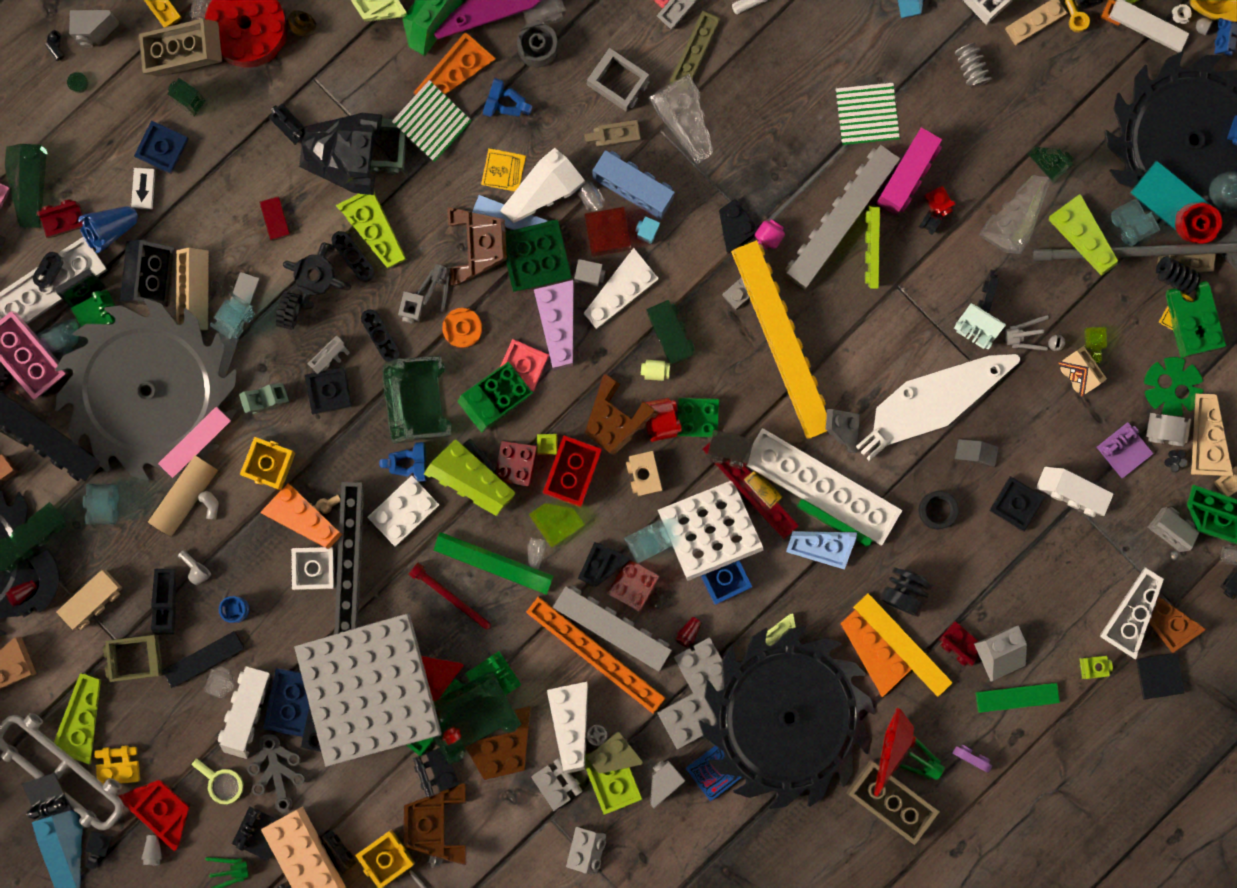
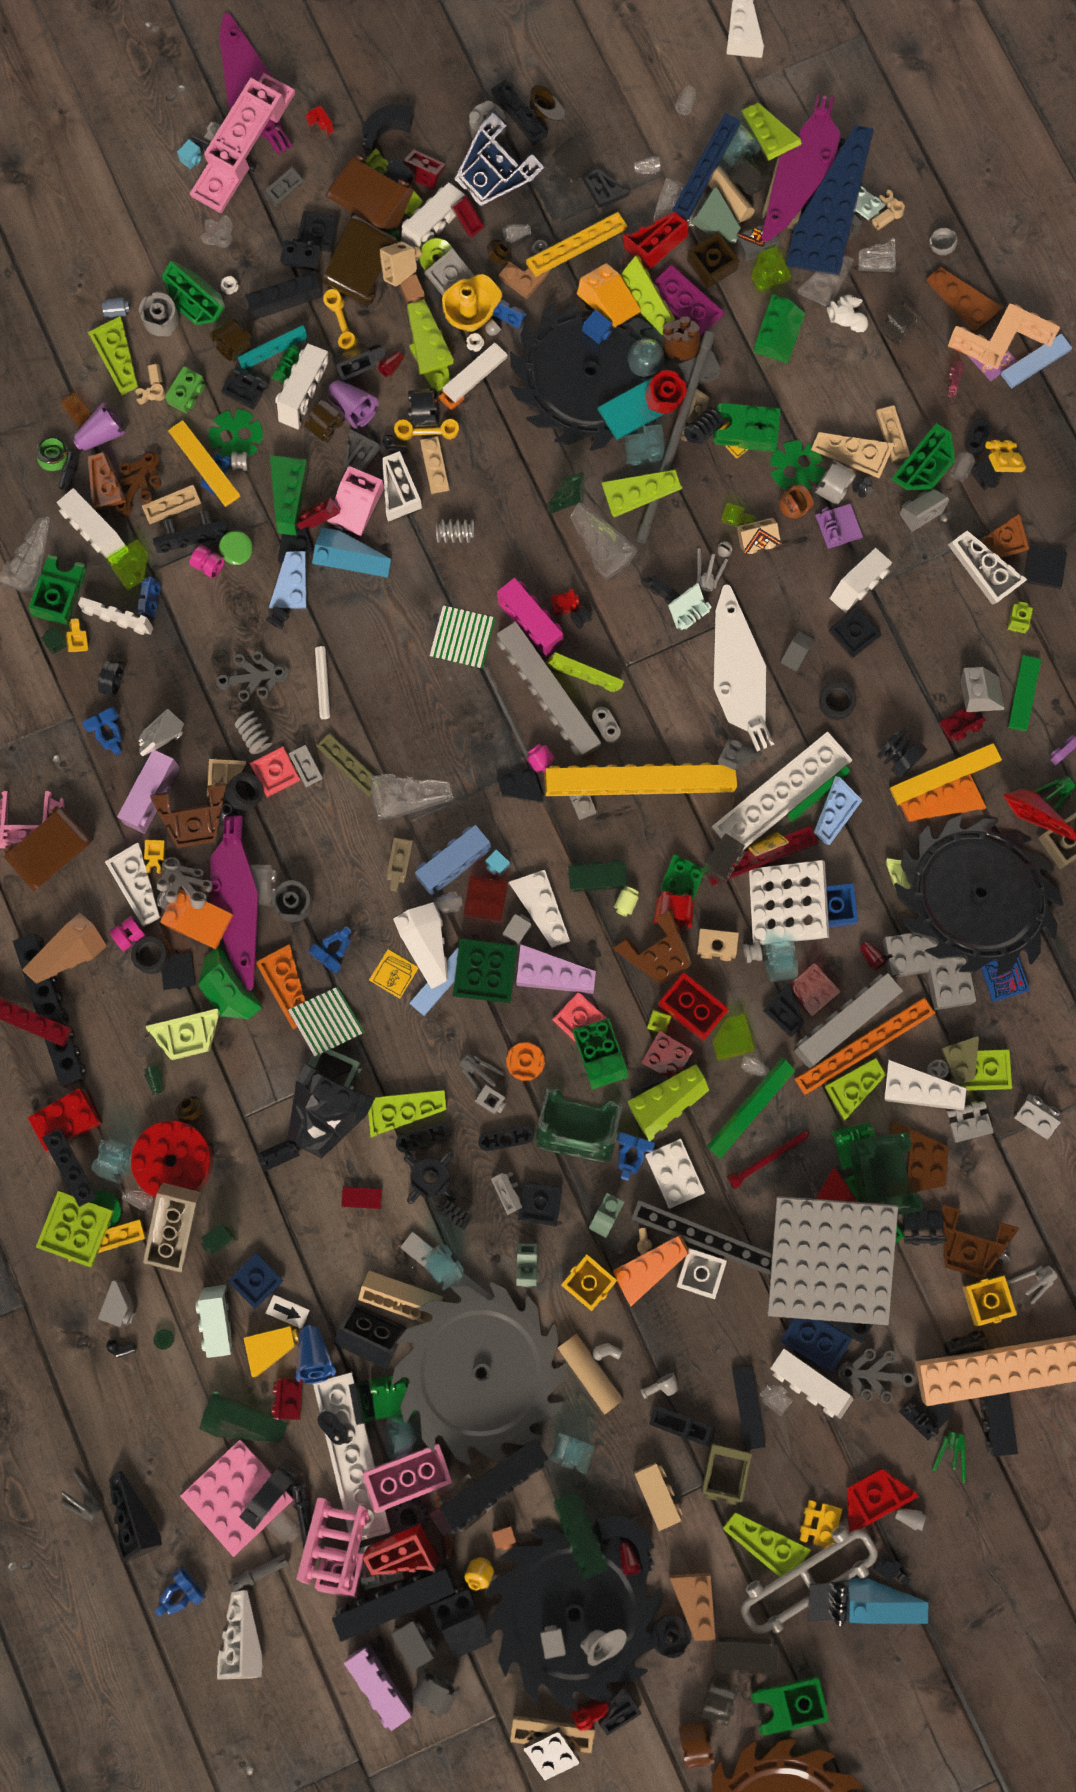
camera: 65 degrees left, 5 degrees down
(102, 182) = (269, 1347): none -> yellow slope
(108, 122) = (214, 1321): none -> light aqua wedge
(194, 442) = (544, 1344): bright pink tile -> none
(224, 785) = (871, 1428): piece -> none
(234, 609) = (713, 1361): blue wheel -> none
(338, 457) = (606, 1215): none -> sand green brick
(451, 735) = (897, 1198): red plate -> none
(485, 243) = (456, 1011): reddish brown wing -> none
(550, 658) = (854, 1087): none -> lime wing
(602, 67) = (346, 864): light grey window -> none
(649, 511) = (752, 952): none -> light grey wheel
(664, 782) = (1001, 1024): light grey slope -> none
(829, 287) = (605, 724): none -> light grey plate
(1131, 396) = (792, 503): none -> dark orange helmet

